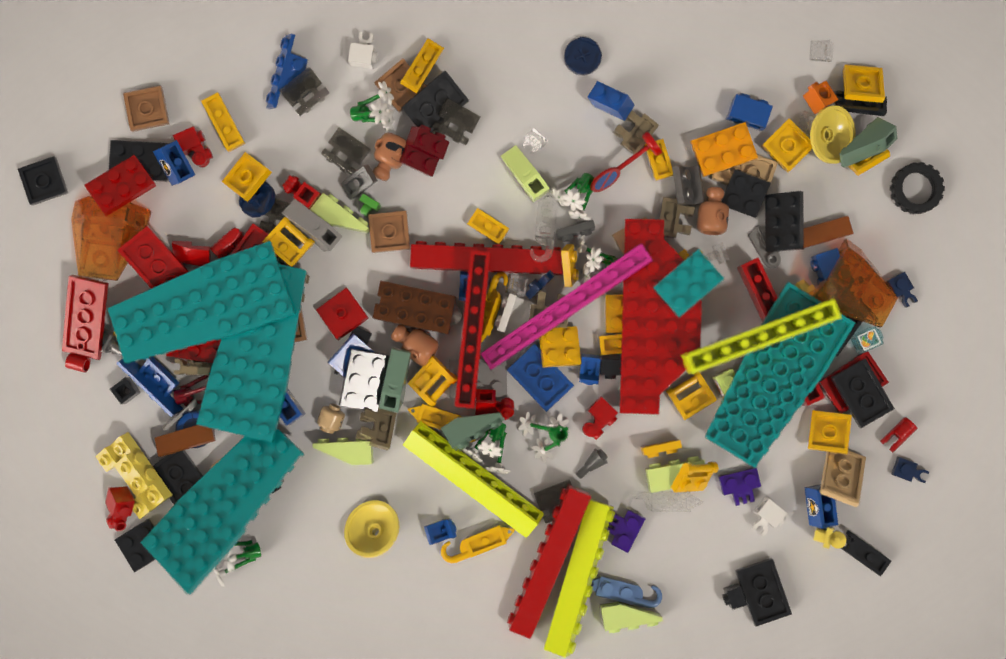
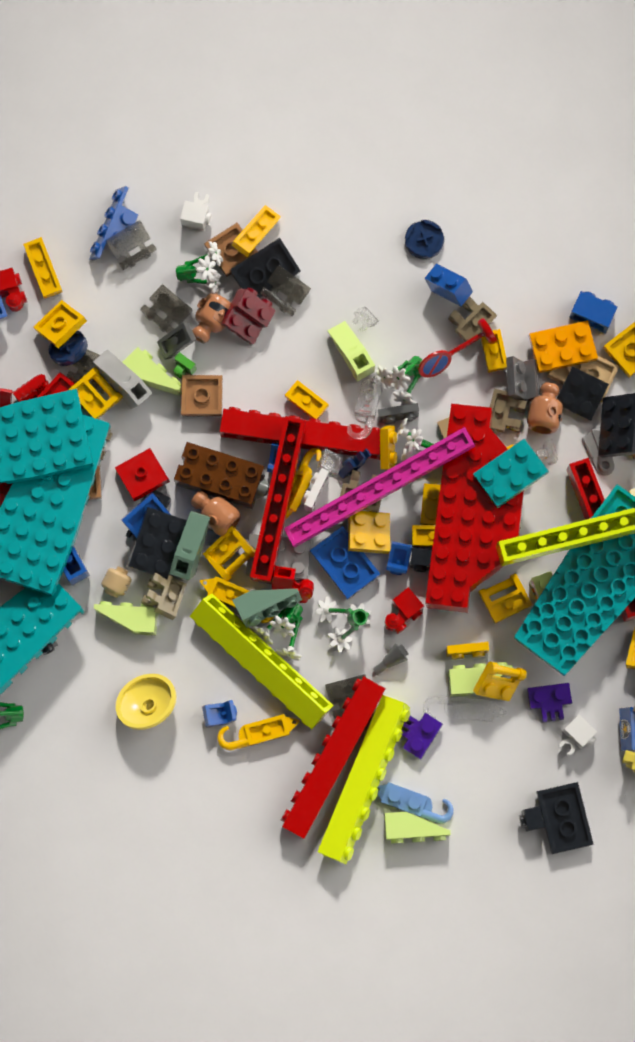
camera: 10 degrees right, 10 degrees down
(302, 192) = (116, 345): red brick -> none

